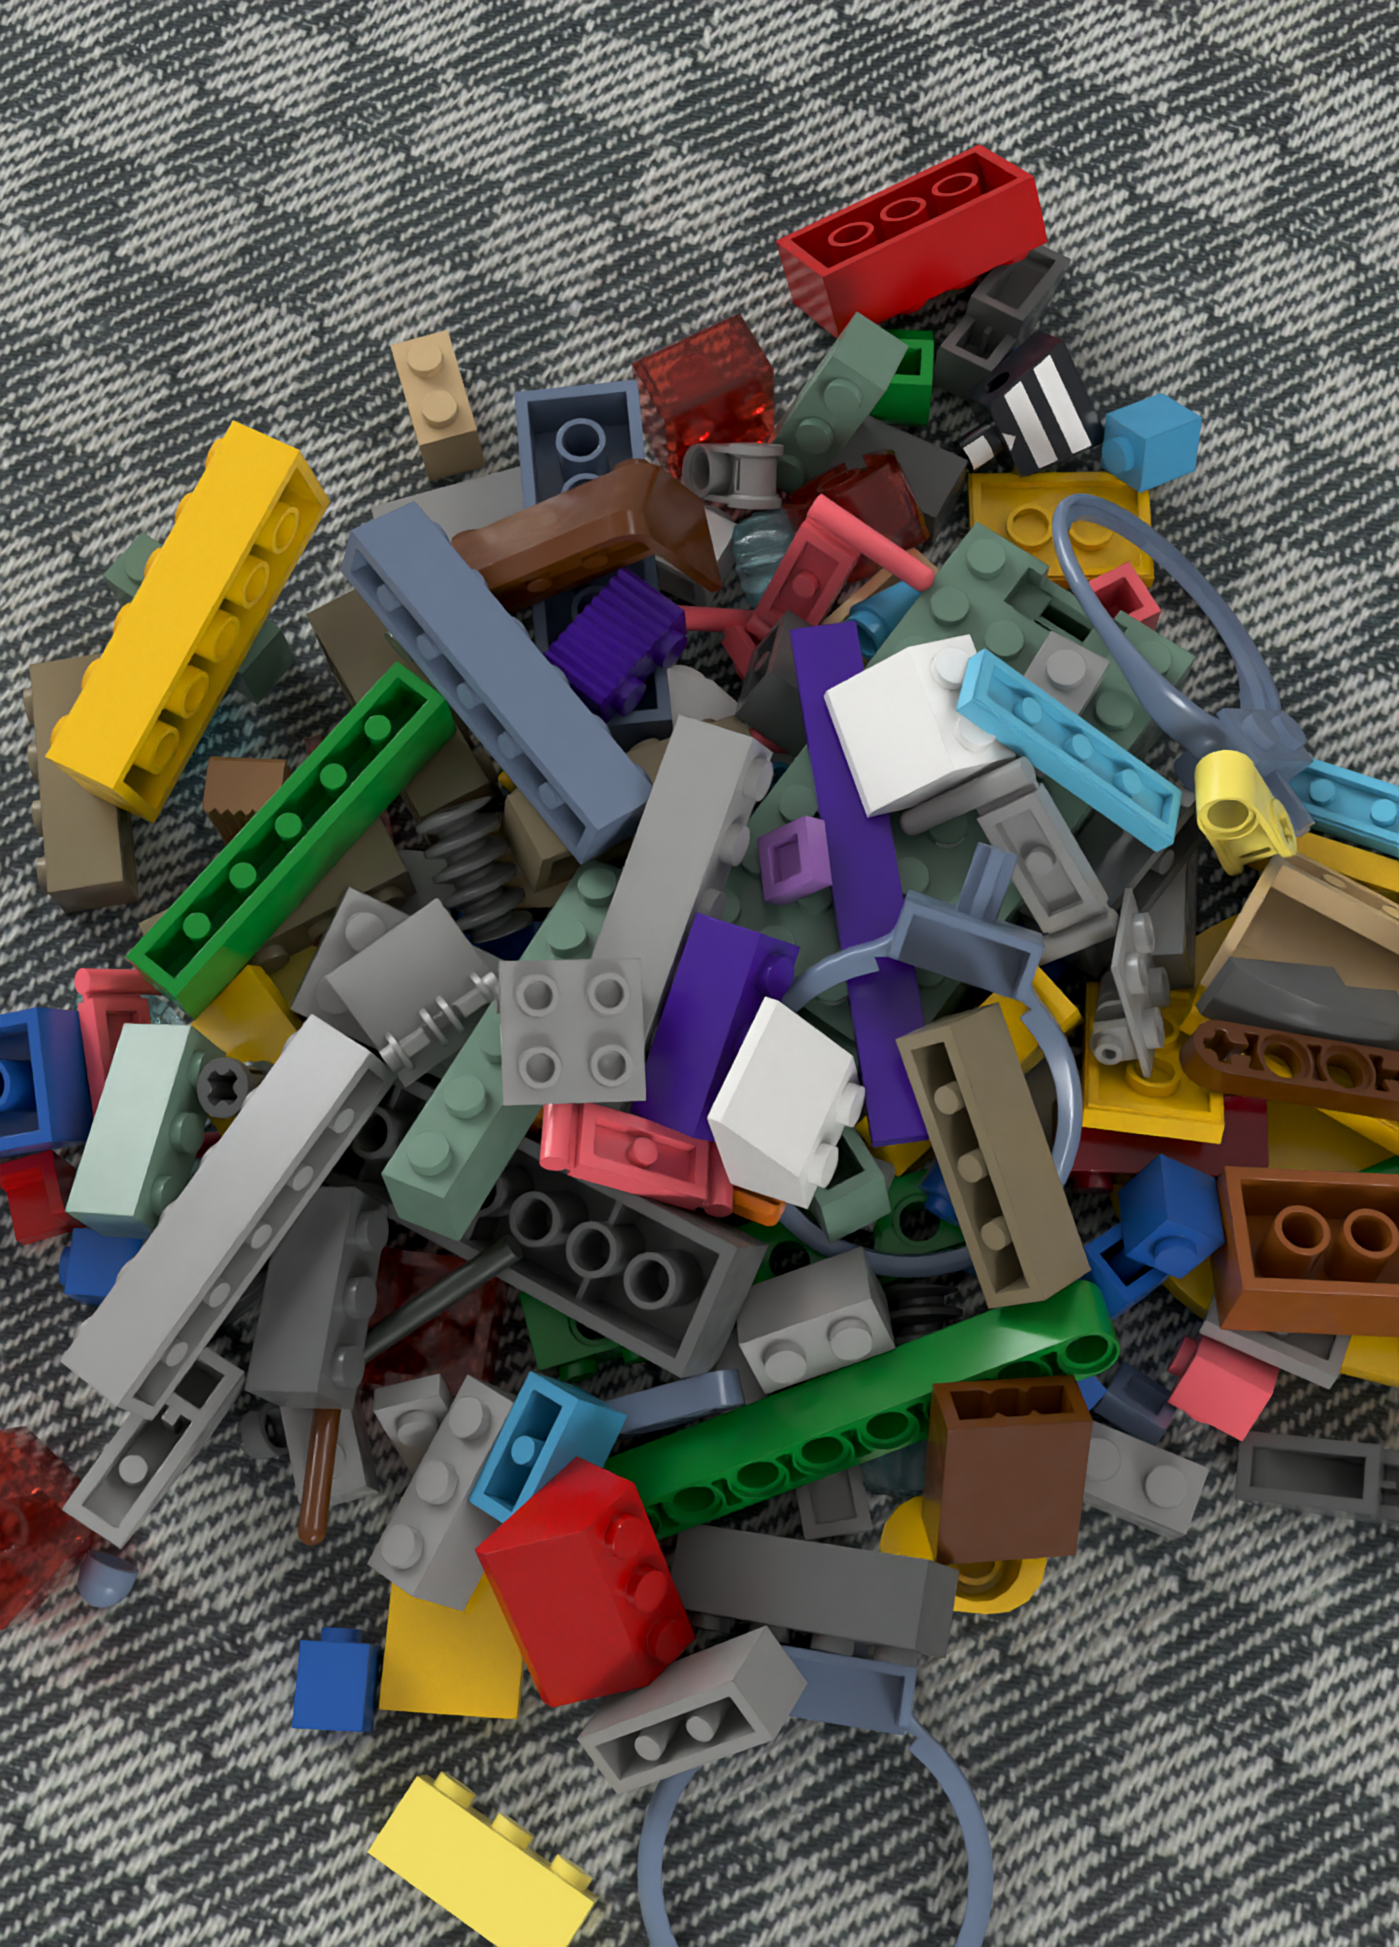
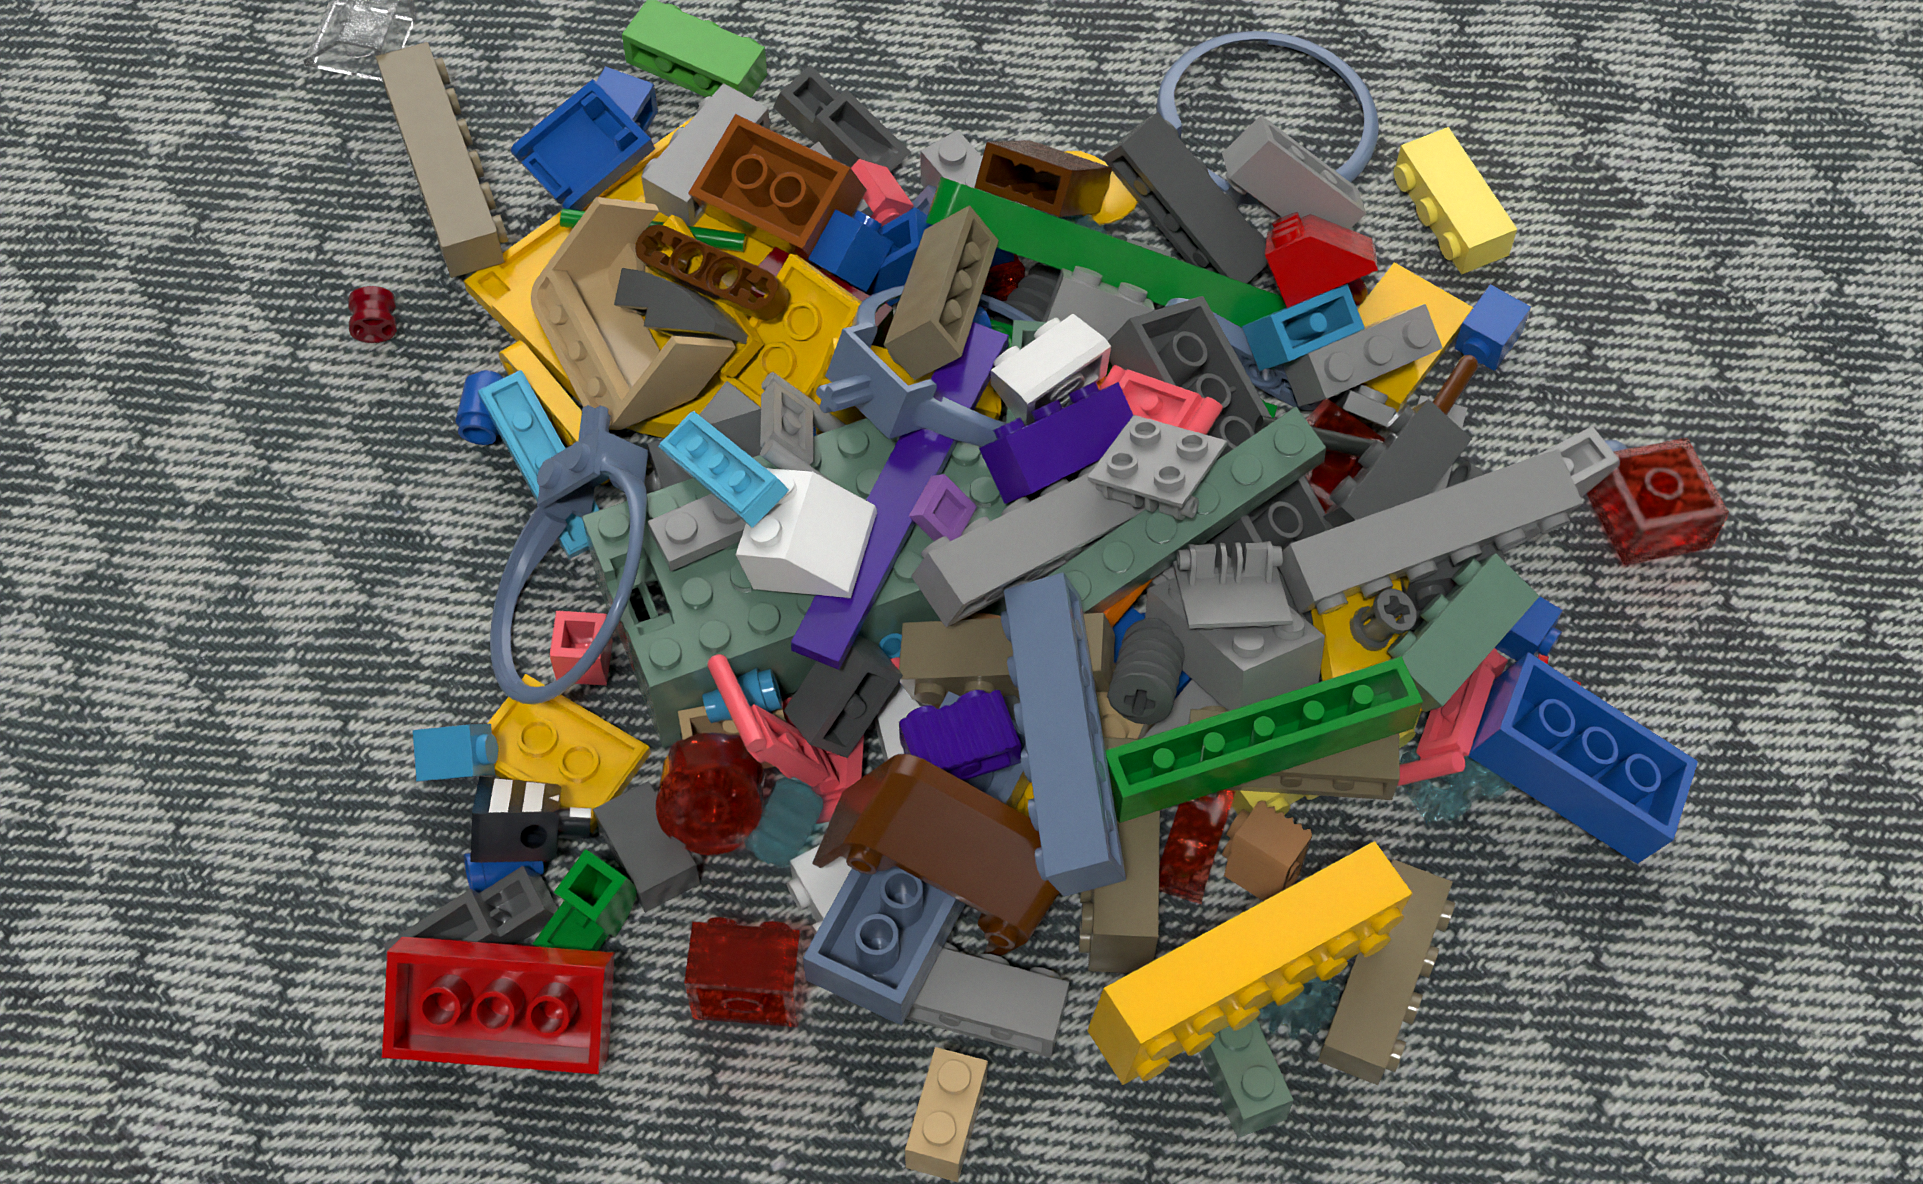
camera: 155 degrees left, 10 degrees down
(734, 473) = (763, 891): light grey piece -> none
(835, 401) = (668, 874): sand green brick -> none
(1131, 995) = (794, 337): light grey hinge -> none
(1240, 812) = (633, 413): light yellow piece -> none

